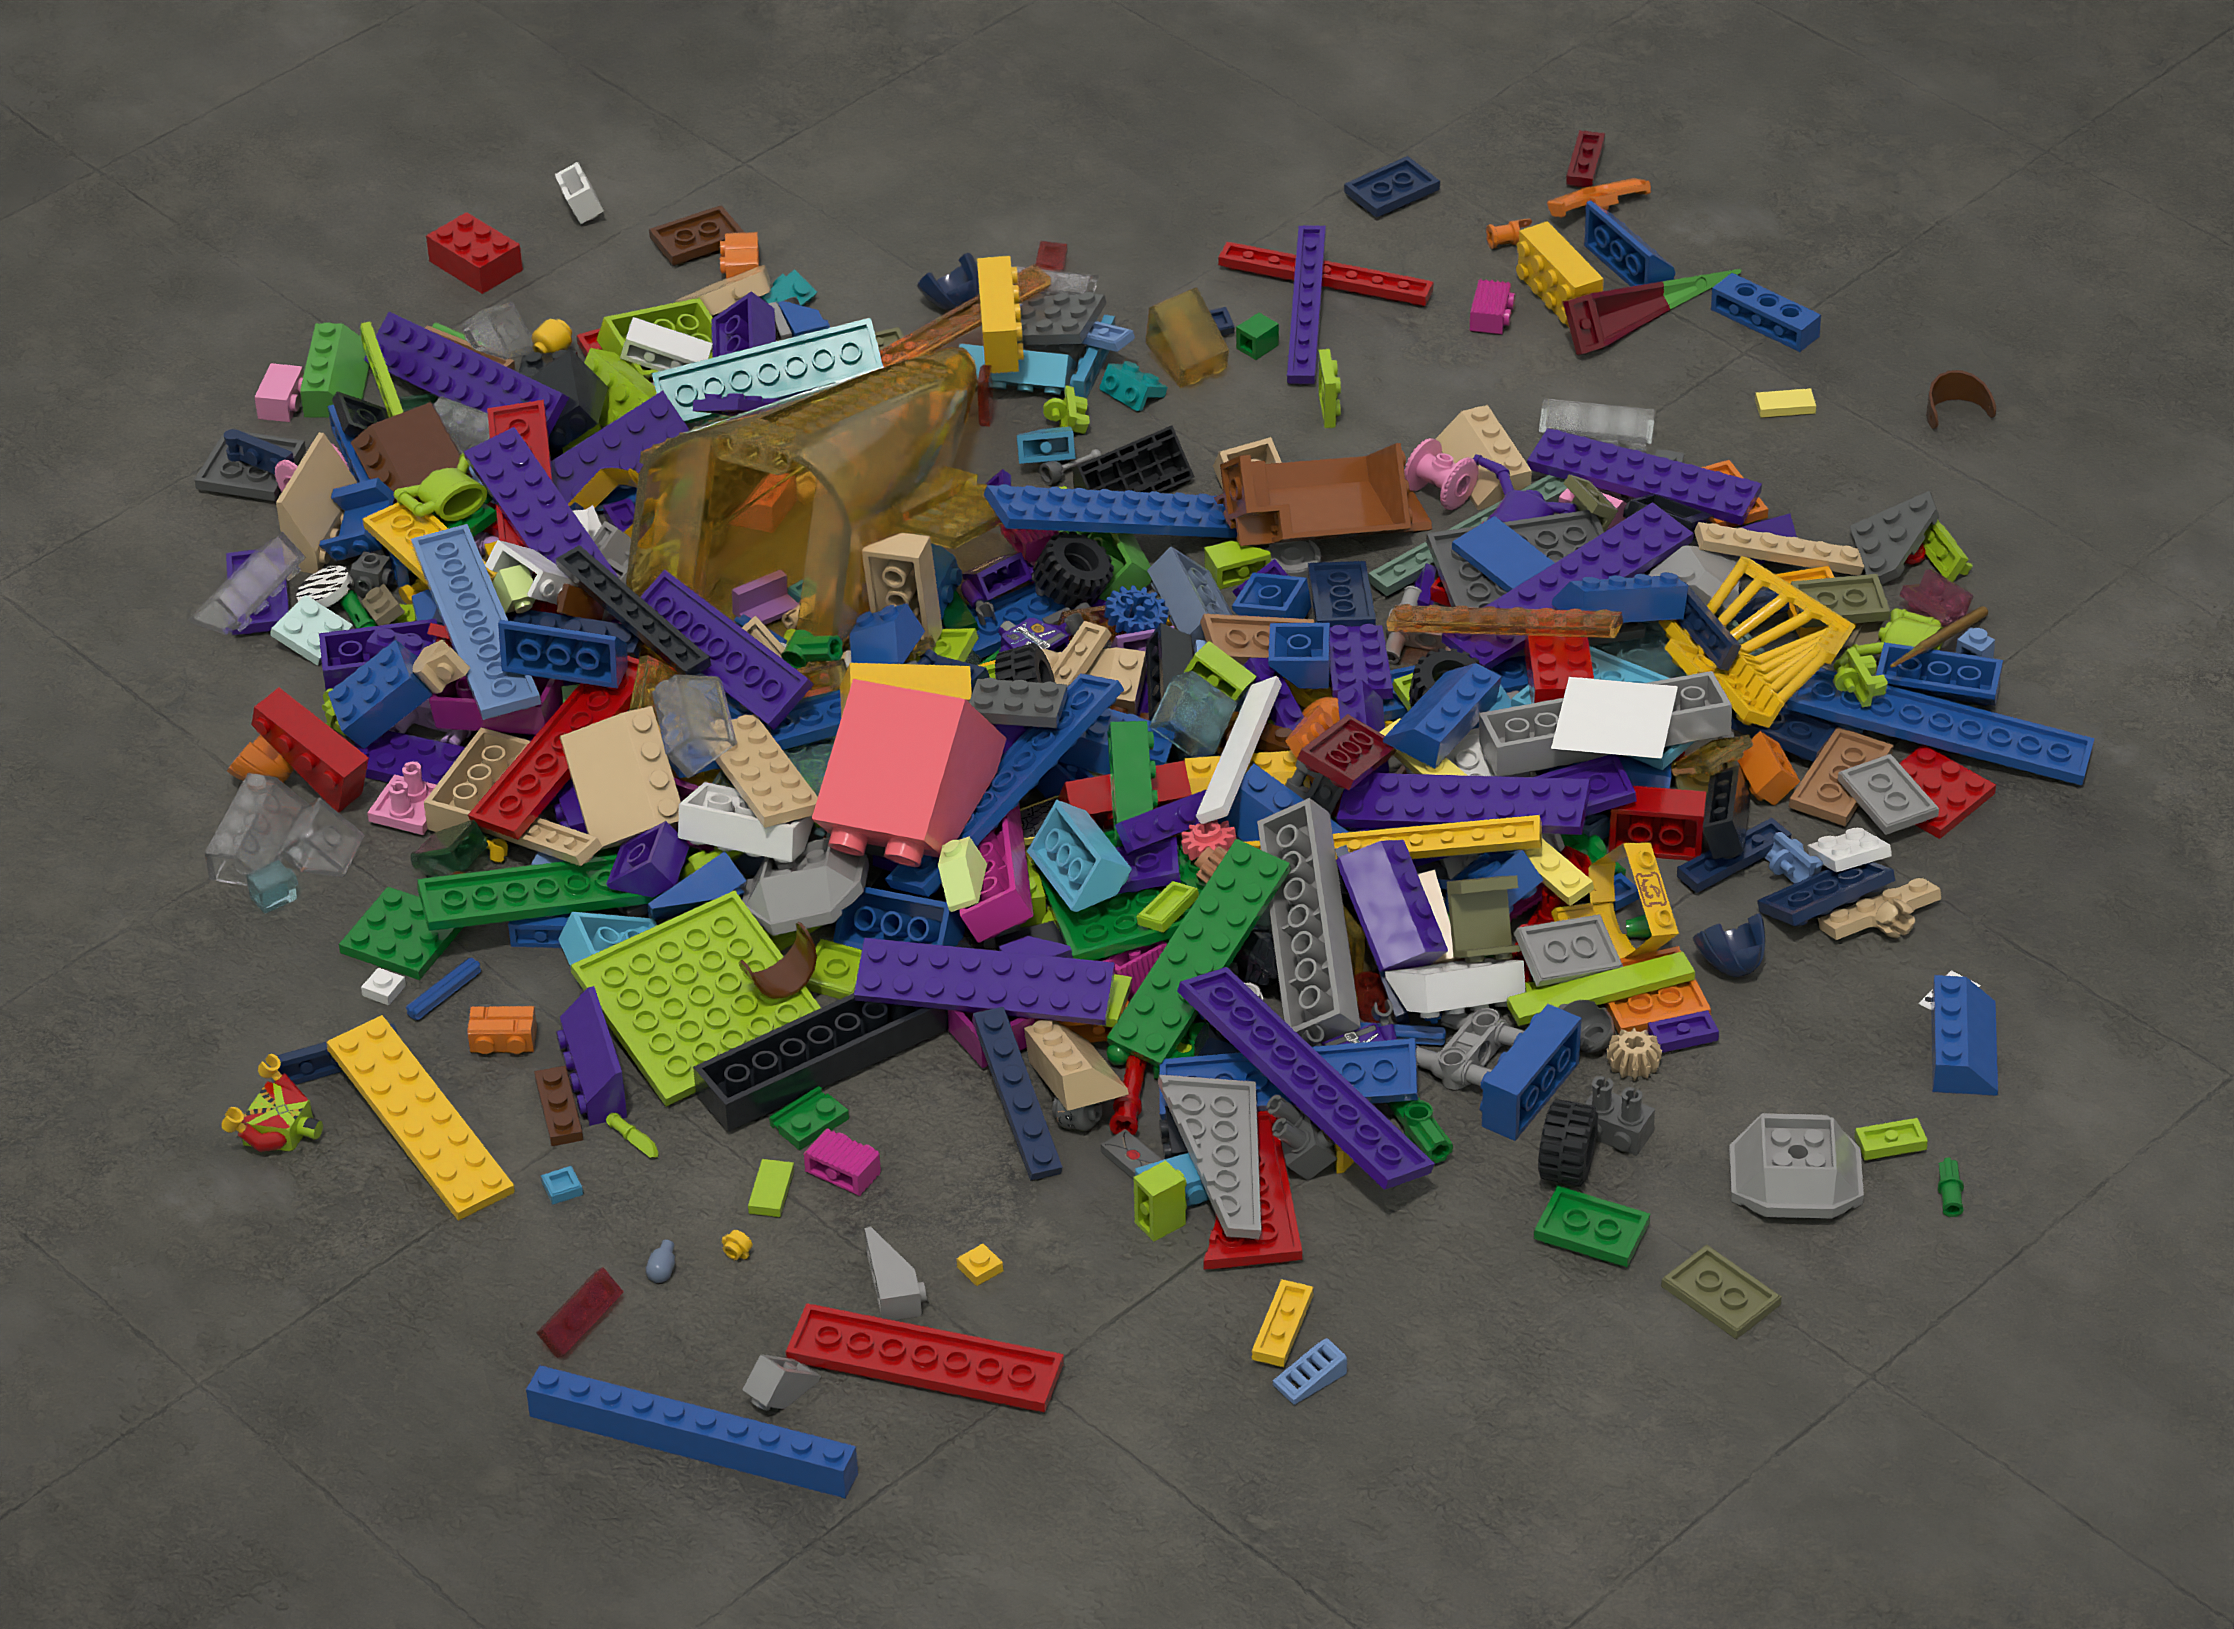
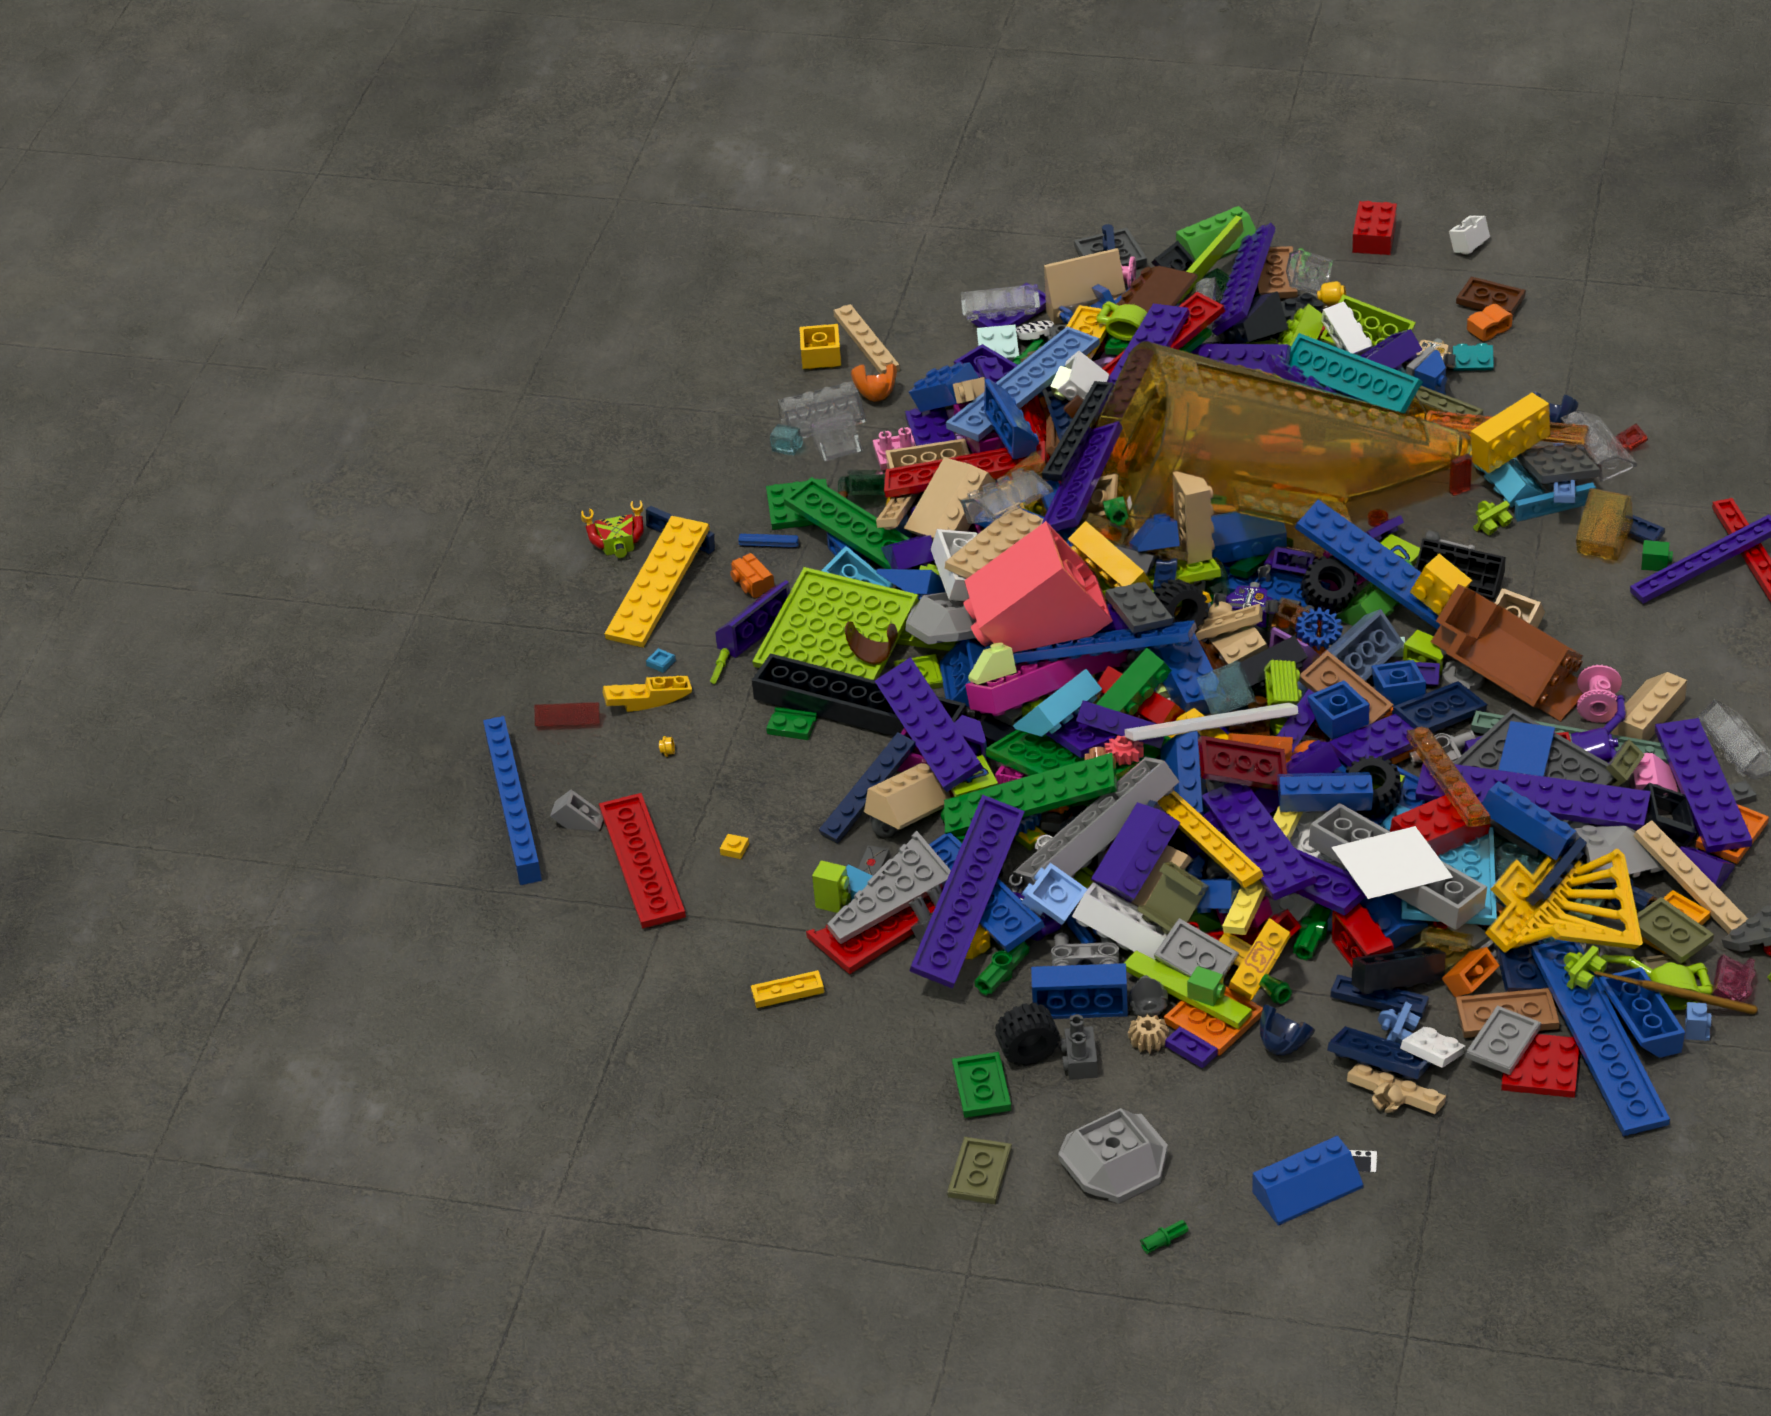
camera: 60 degrees right, 0 degrees up
(132, 774) = (820, 346): none -> yellow brick
(154, 736) = (865, 338): none -> tan plate
(279, 392) = (1169, 226): bright pink brick -> none
(312, 748) = (882, 389): red wedge -> none
(383, 986) = (752, 519): white plate -> none
(558, 1106) = (705, 636): reddish brown plate -> none
(623, 1218) = (652, 694): none -> yellow slope
(661, 1262) = (631, 725): sand blue cylinder -> none
(726, 292) = (1445, 333): tan animal -> none
(771, 1188) = (724, 737): lime tile -> none
(842, 1161) = (763, 751): dark pink brick -> none
(893, 1279) = (686, 818): light grey slope -> none
(1046, 445) = (1446, 522): dark azure slope -> none
(1129, 1106) = (928, 833): red pin -> none
(1131, 385) = (1551, 528): teal bracket -> none
(1167, 906) = (1049, 761): lime tile -> none
(1191, 483) = (1438, 583): none -> yellow brick
(1325, 1356) = (771, 1021): medium blue slope -> none
(1328, 388) = (1627, 606): lime plate -> none
(1384, 1007) = (1053, 893): none -> light blue plate
(1624, 891) = (1292, 959): blue plate -> none
(1628, 964) = (1205, 986): none -> bright green brick
(1891, 1138) = (1181, 1188): lime plate -> none

